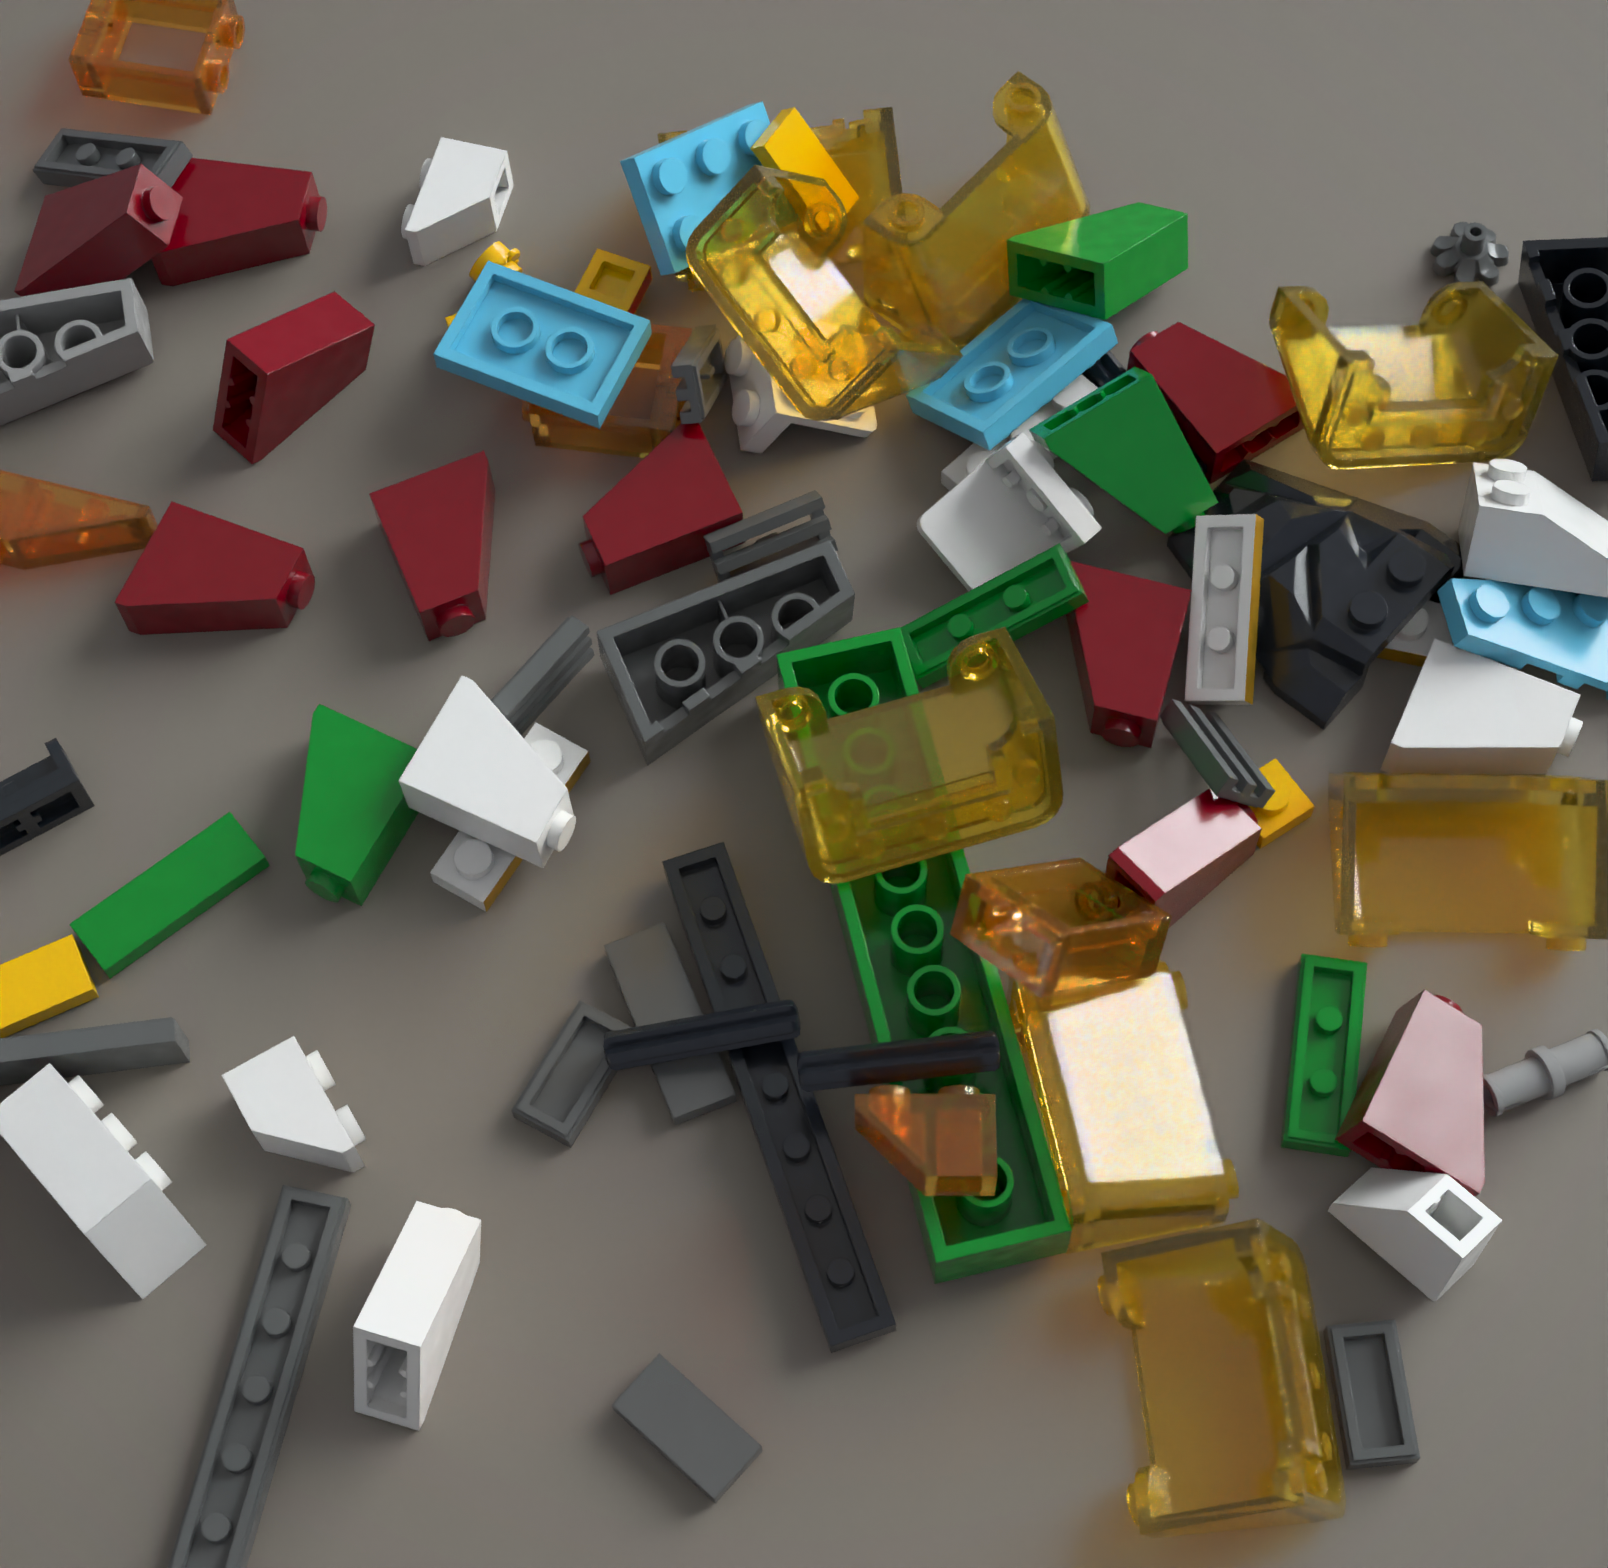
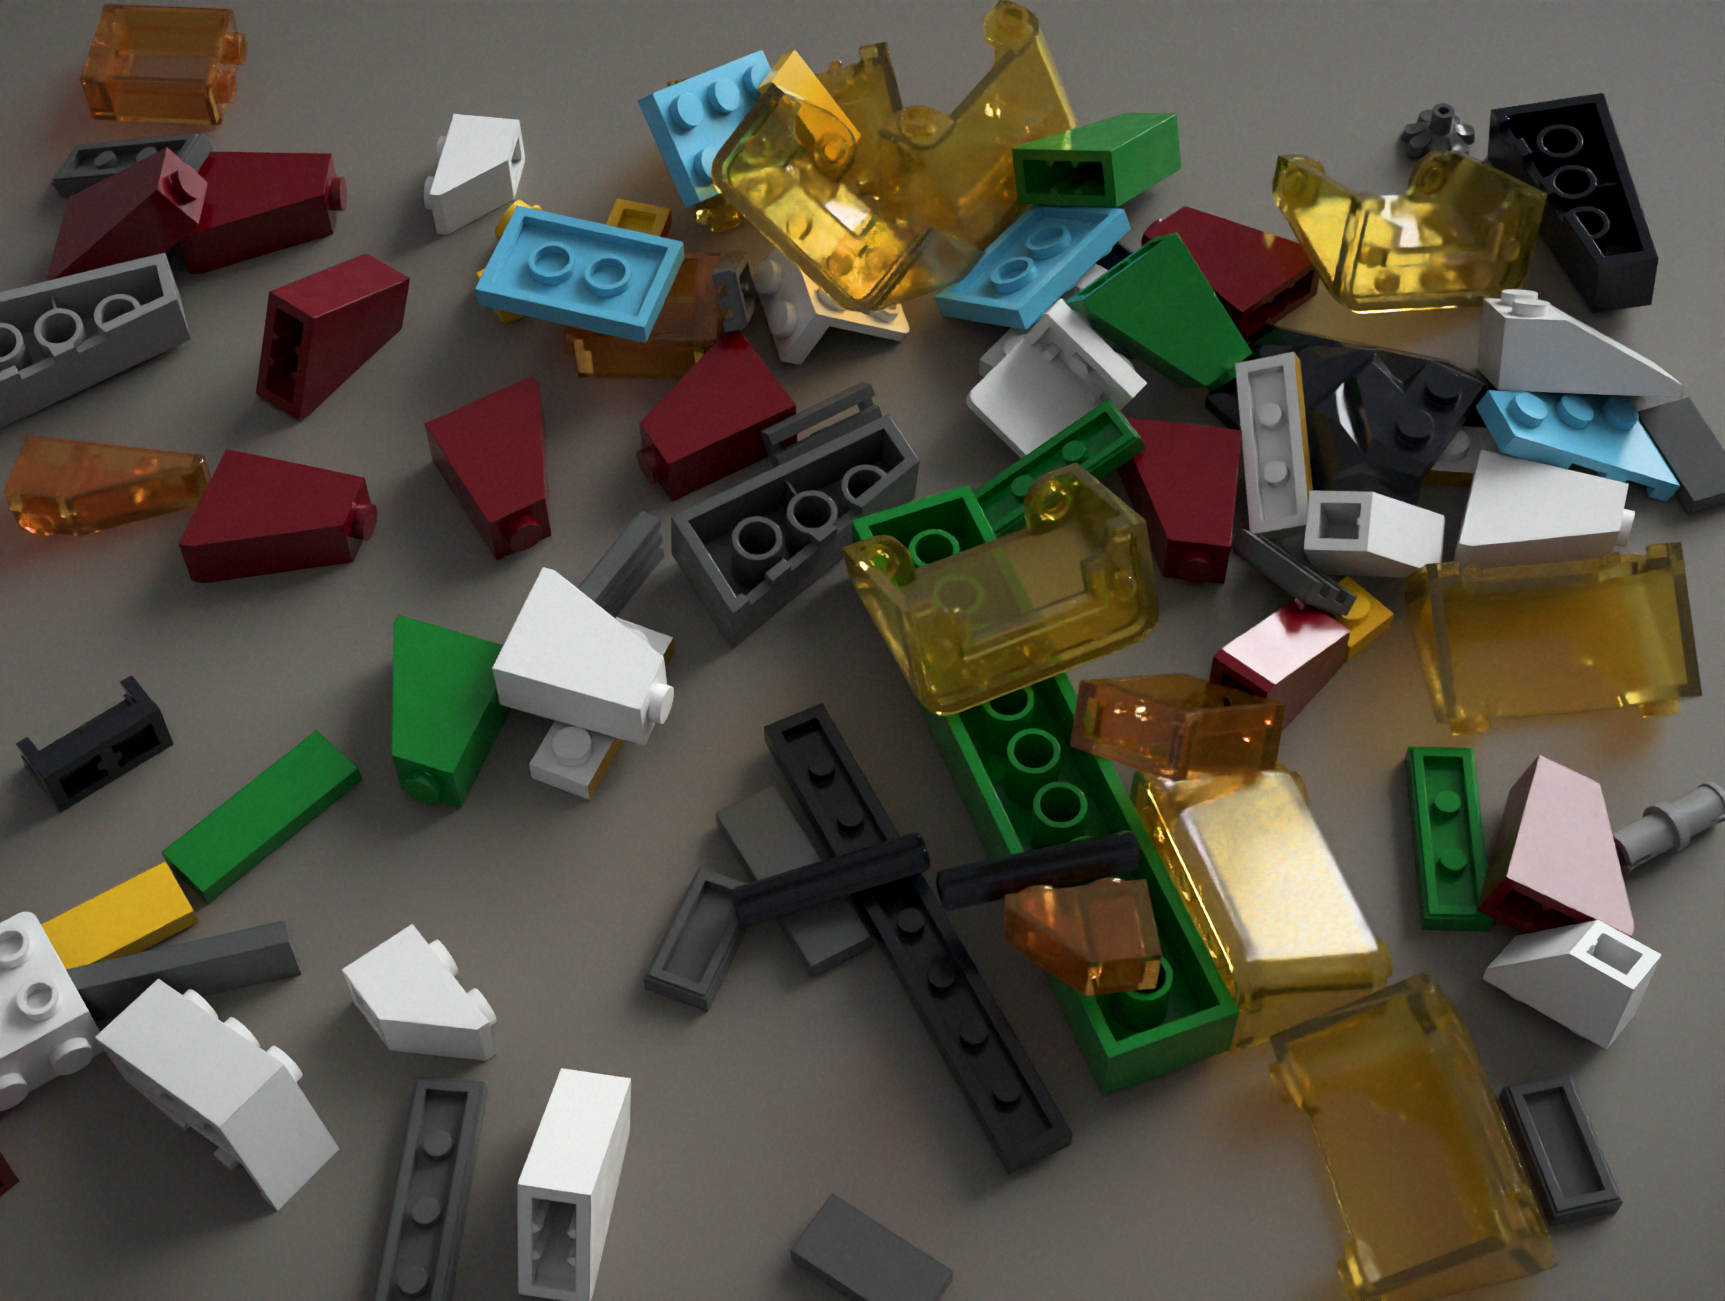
camera: 10 degrees left, 10 degrees down
(1305, 723) = (1370, 534): none -> white slope

